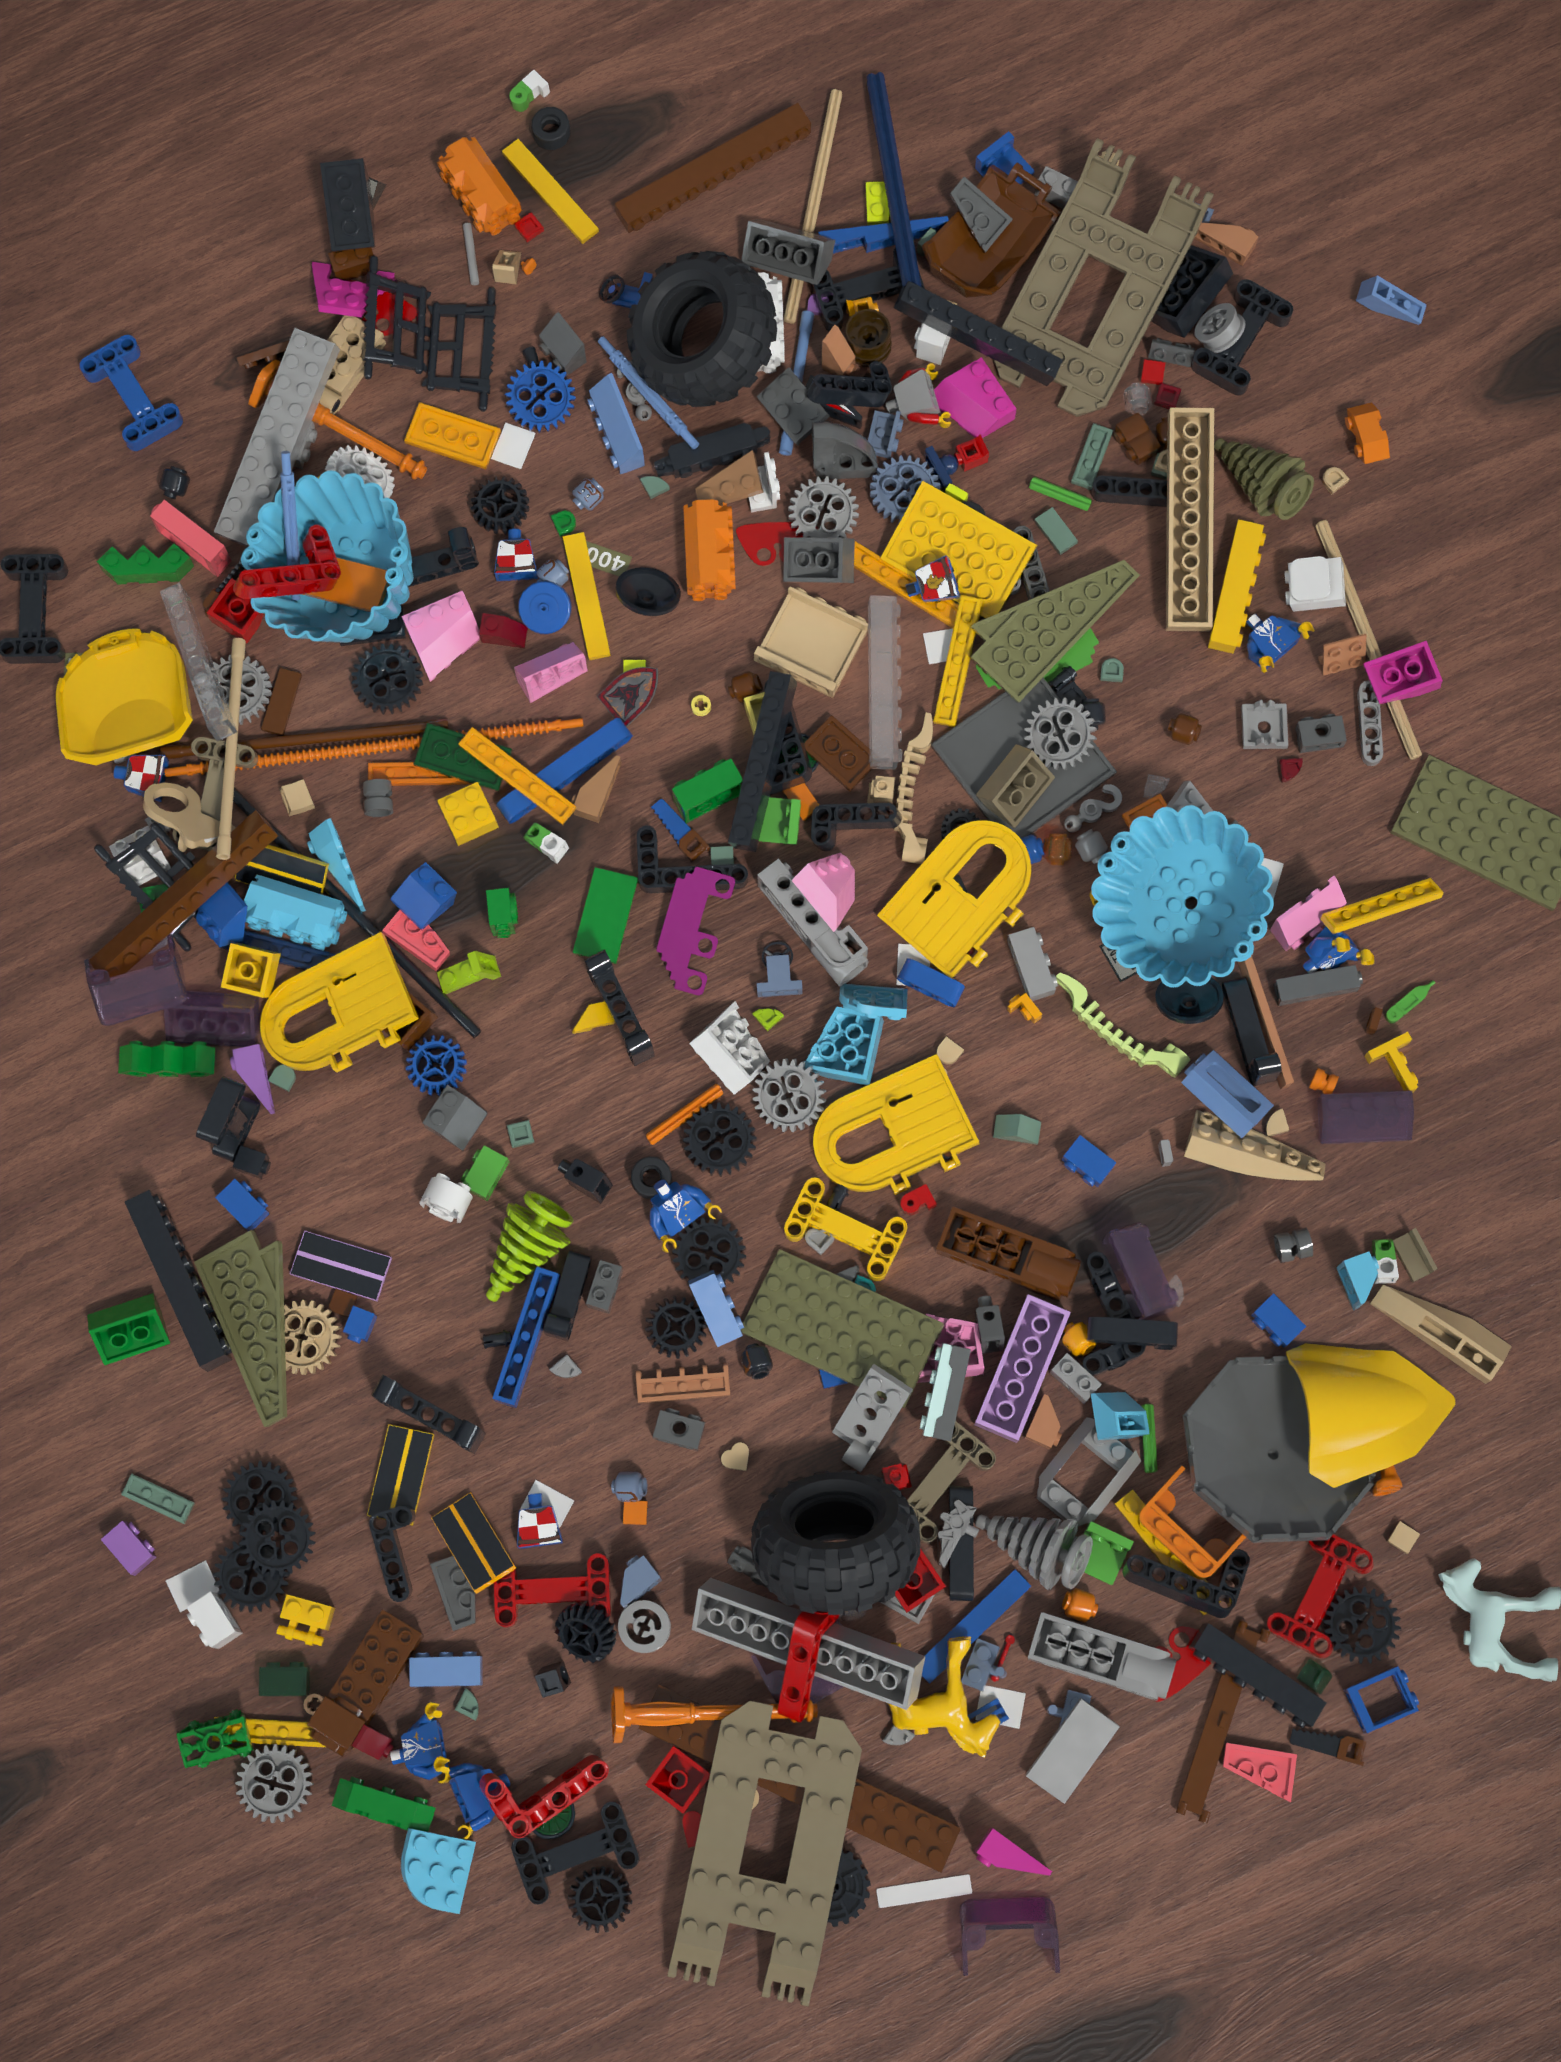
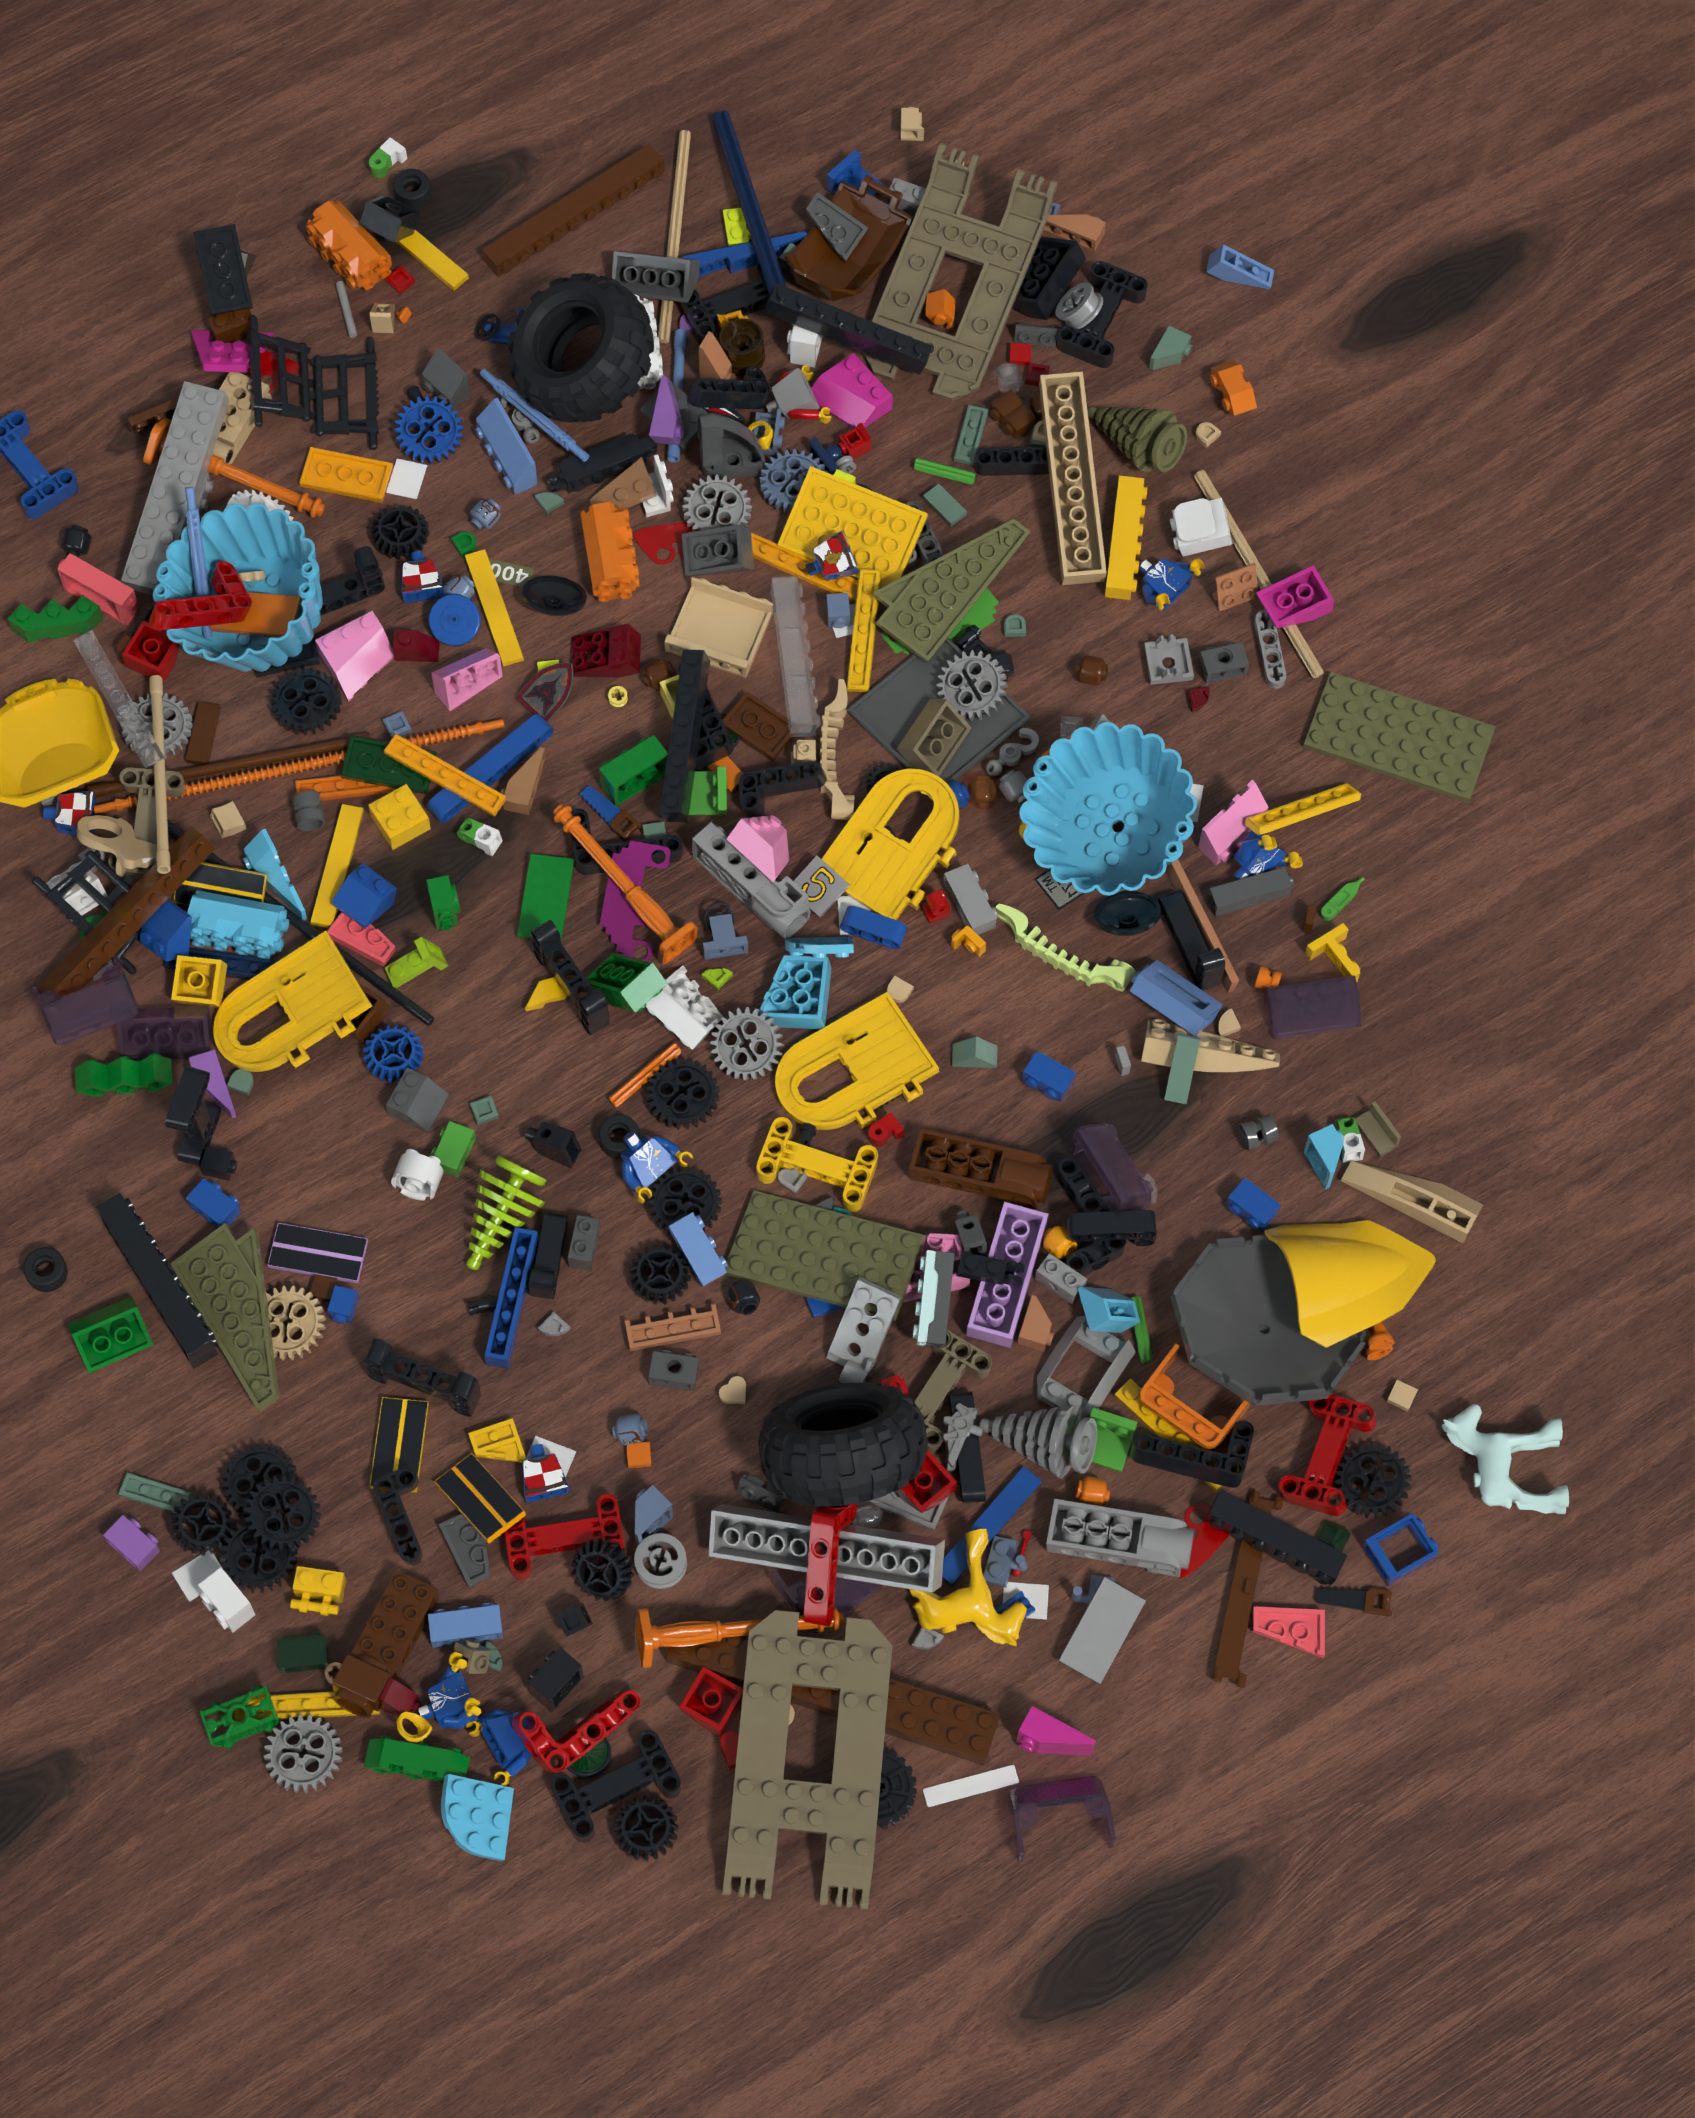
camera: 10 degrees left, 10 degrees down
(61, 1244) = (39, 1257): none -> black tyre
(213, 1542) = (191, 1521): none -> black gear
(344, 542) = (252, 576): none -> tan tile
(394, 1773) = (421, 1723): none -> yellow piece
(401, 856) = (337, 864): none -> yellow tile
(452, 1703) = (477, 1655): none -> dark tan bracket
(476, 713) = (397, 724): none -> sand blue tile
(498, 1484) = (498, 1442): none -> yellow wing
(523, 161) = (389, 218): none -> black brick
(526, 1739) = (555, 1679): none -> black brick
(673, 1021) = (627, 981): none -> green brick
(694, 658) = (607, 652): none -> dark red slope
(701, 936) = (673, 938): none -> orange piece
(782, 412) = (667, 421): none -> medium lavender slope
(881, 933) = (821, 885): none -> light grey tile
(882, 443) = (767, 439): none -> yellow piece
(934, 636) = (838, 610): none -> sand blue brick
(960, 477) = (846, 464): none -> light grey bush
(996, 968) = (936, 907): none -> red leg
(1003, 1365) = (989, 1269): none -> black hinge
(1070, 106) = (911, 124): none -> tan window
(1077, 316) = (941, 308): none -> orange brick
(1224, 1170) = (1182, 1069): none -> sand green tile
(1309, 382) = (1171, 349): none -> sand green slope

